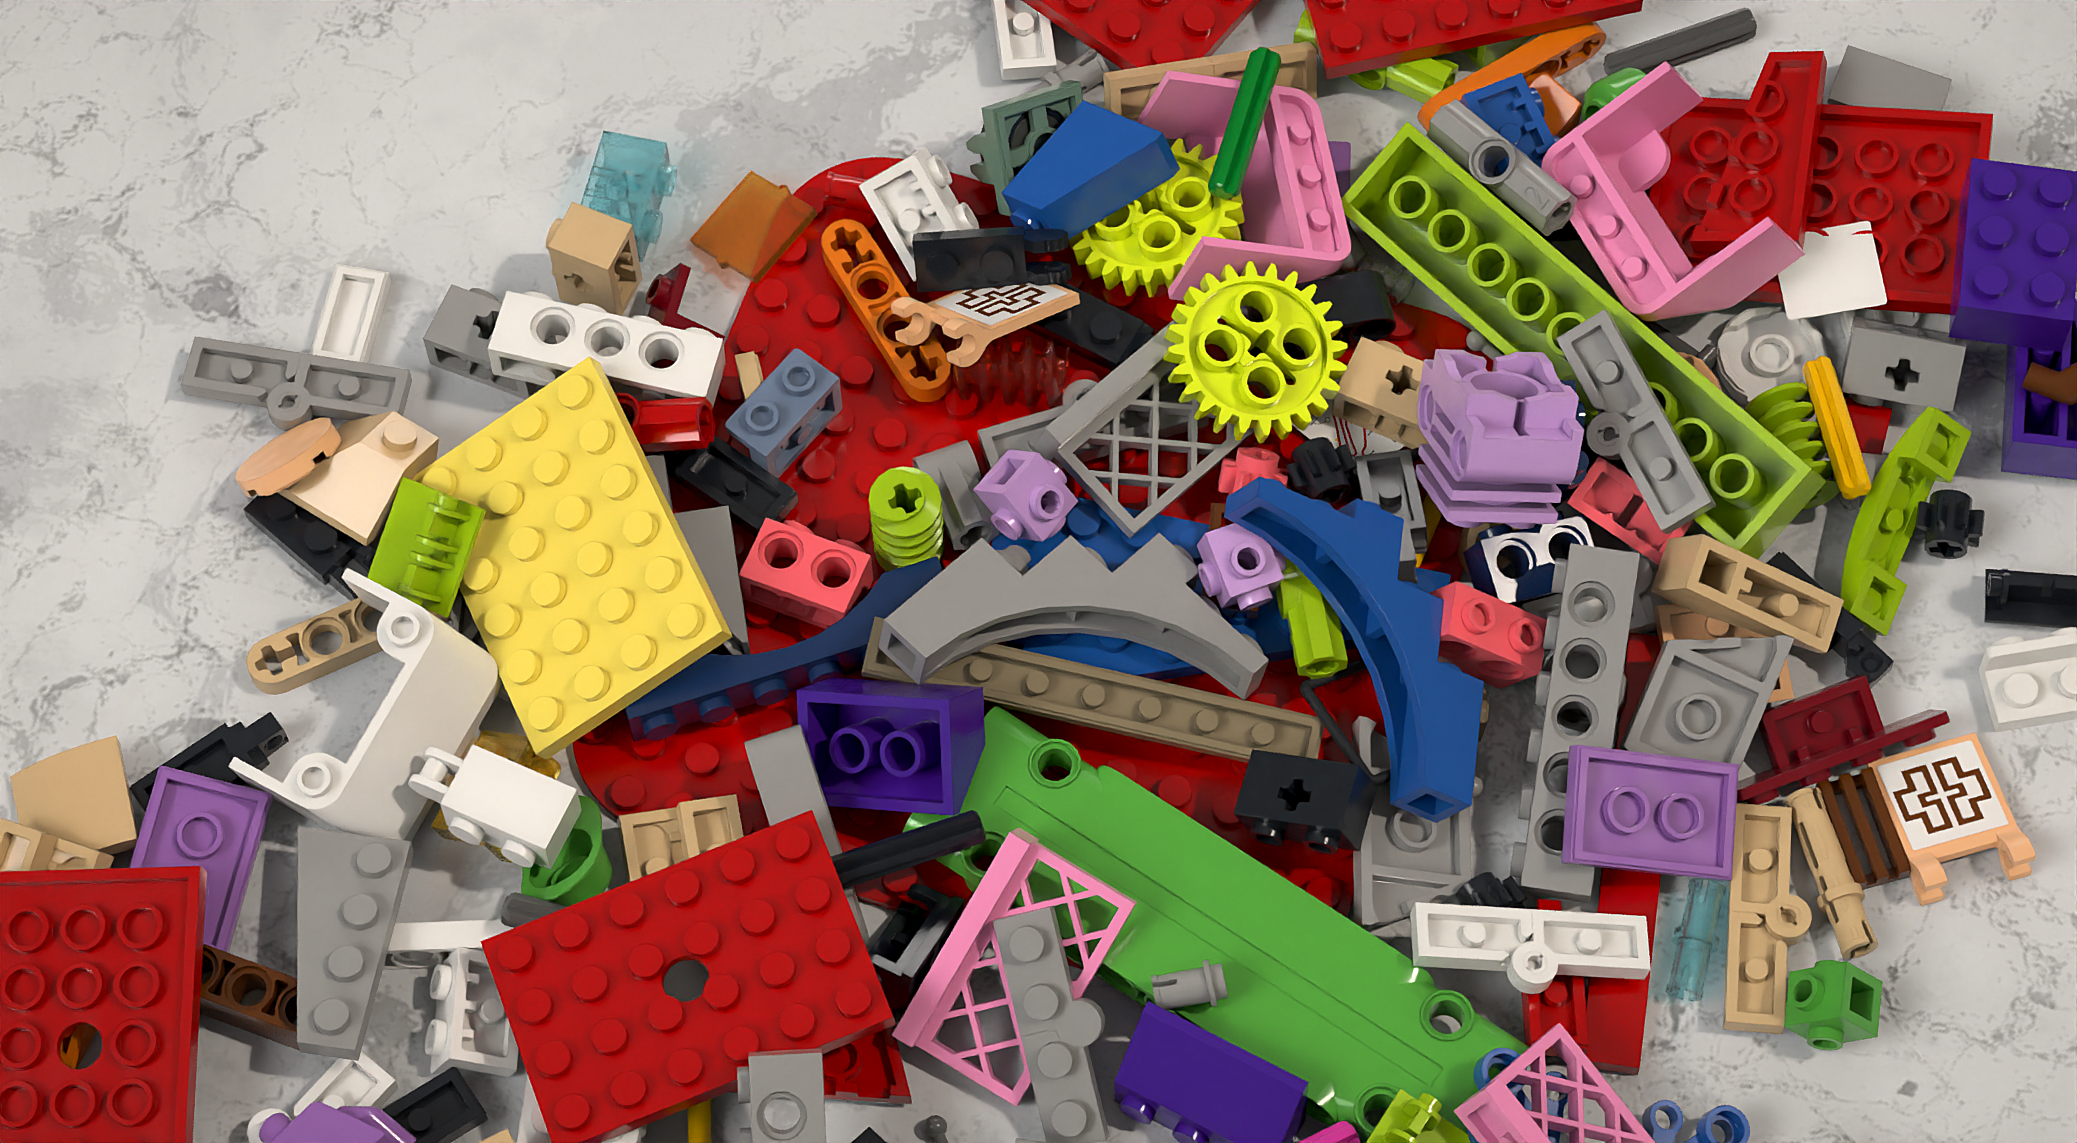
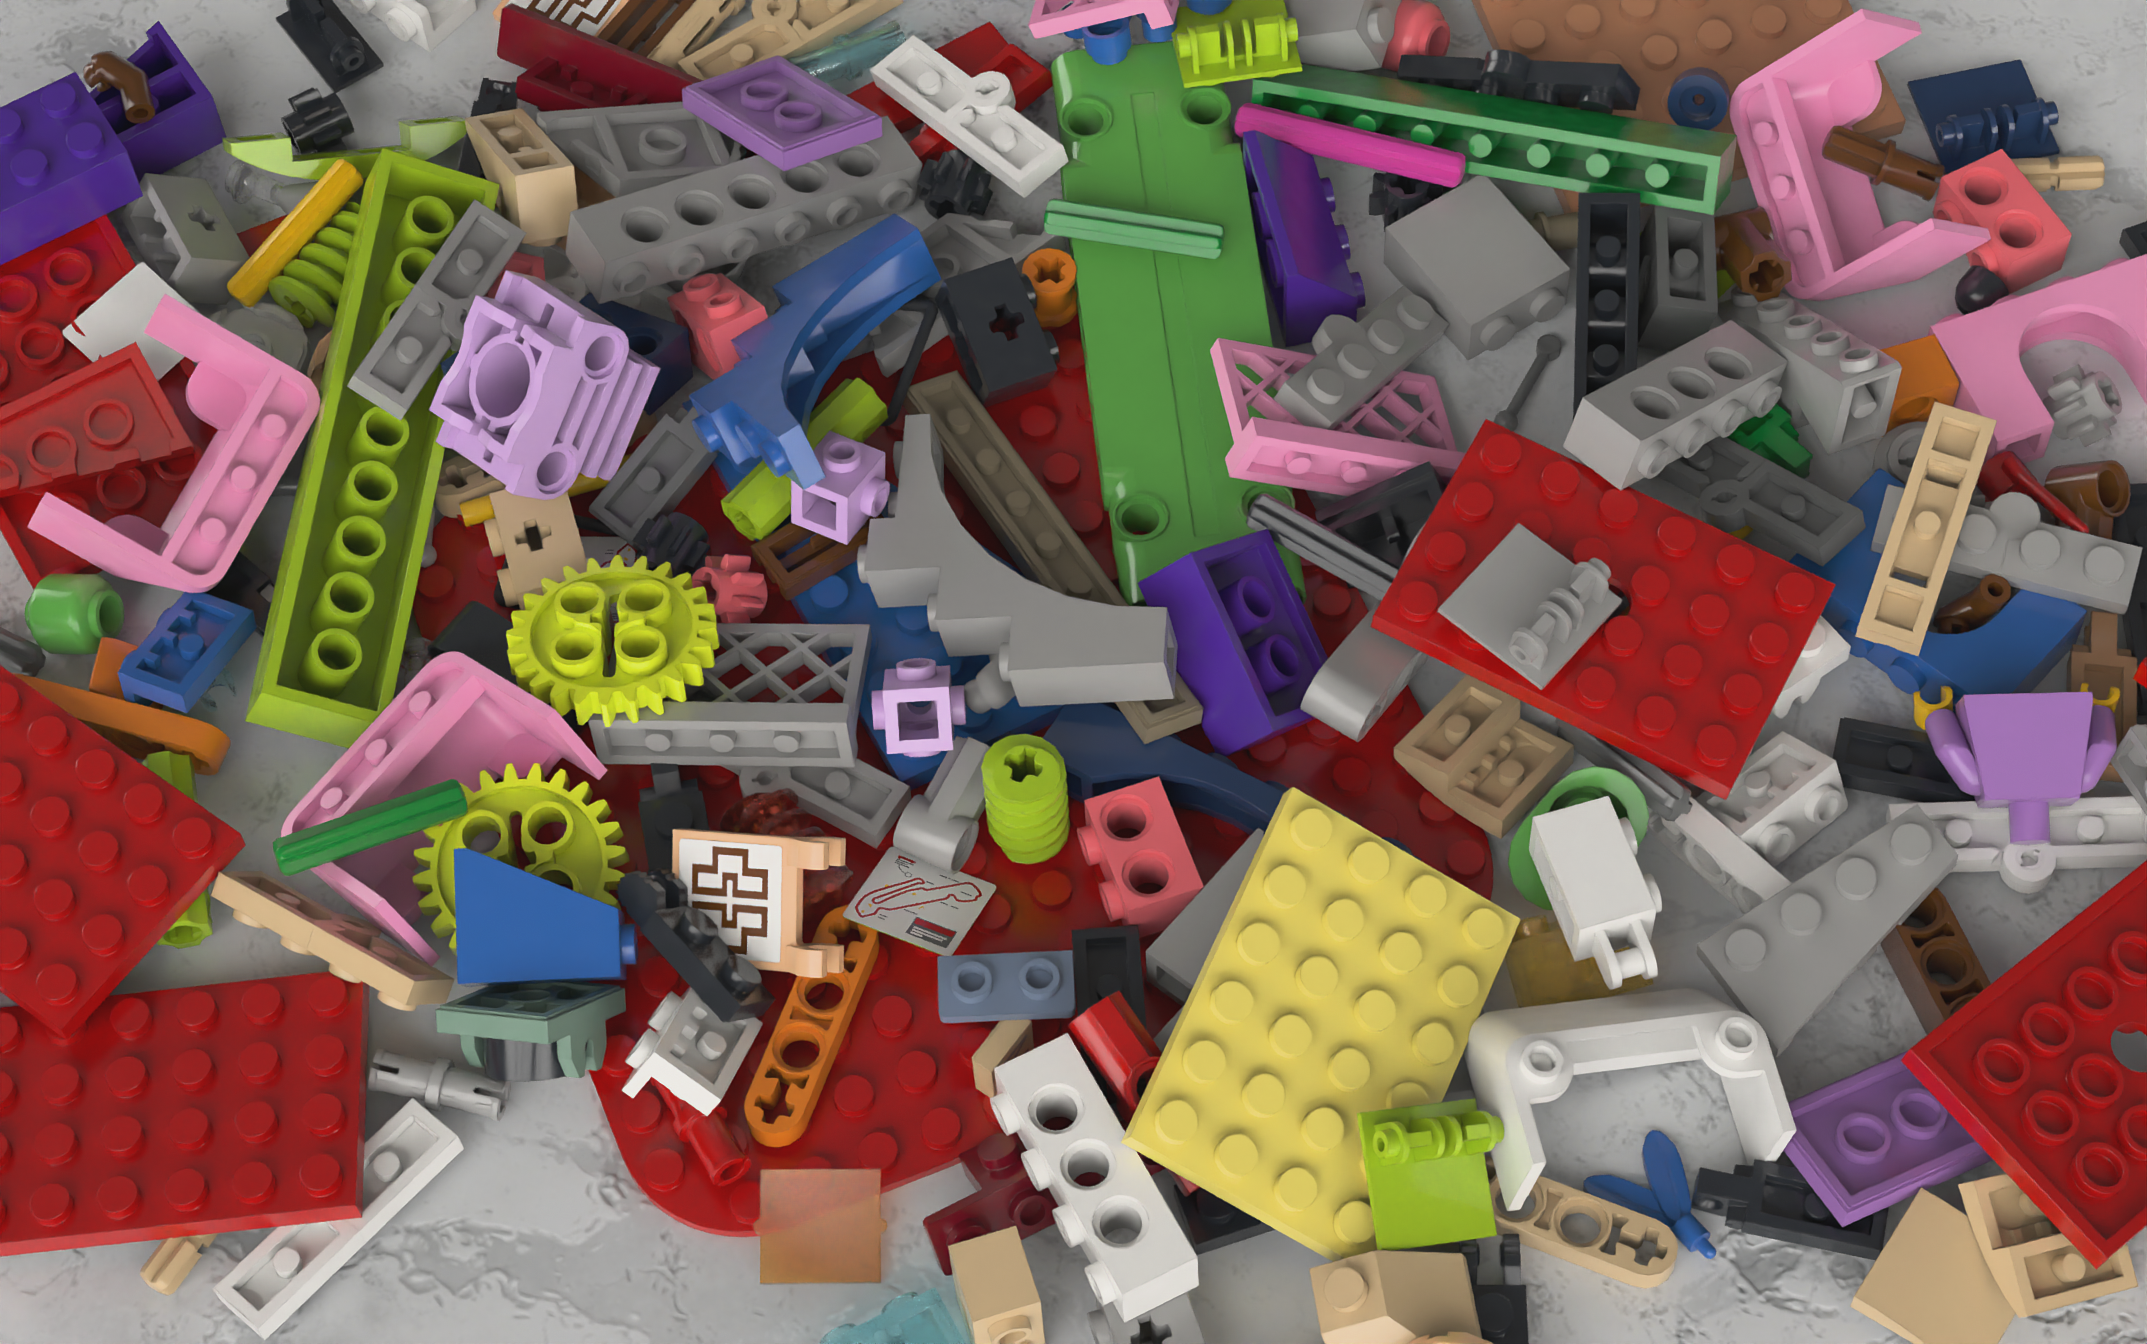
camera: 130 degrees left, 5 degrees down
(296, 705) = (1668, 1193): none -> blue piece
(713, 900) = (1532, 605): none -> light grey hinge
(906, 420) = (919, 902): none -> white sticker
(1190, 987) = (1241, 272): light grey pin -> none
(1301, 951) = (1134, 228): none -> axle
(1336, 872) = (1053, 280): none -> orange bush
(1523, 183) = (235, 633): light grey piece -> none

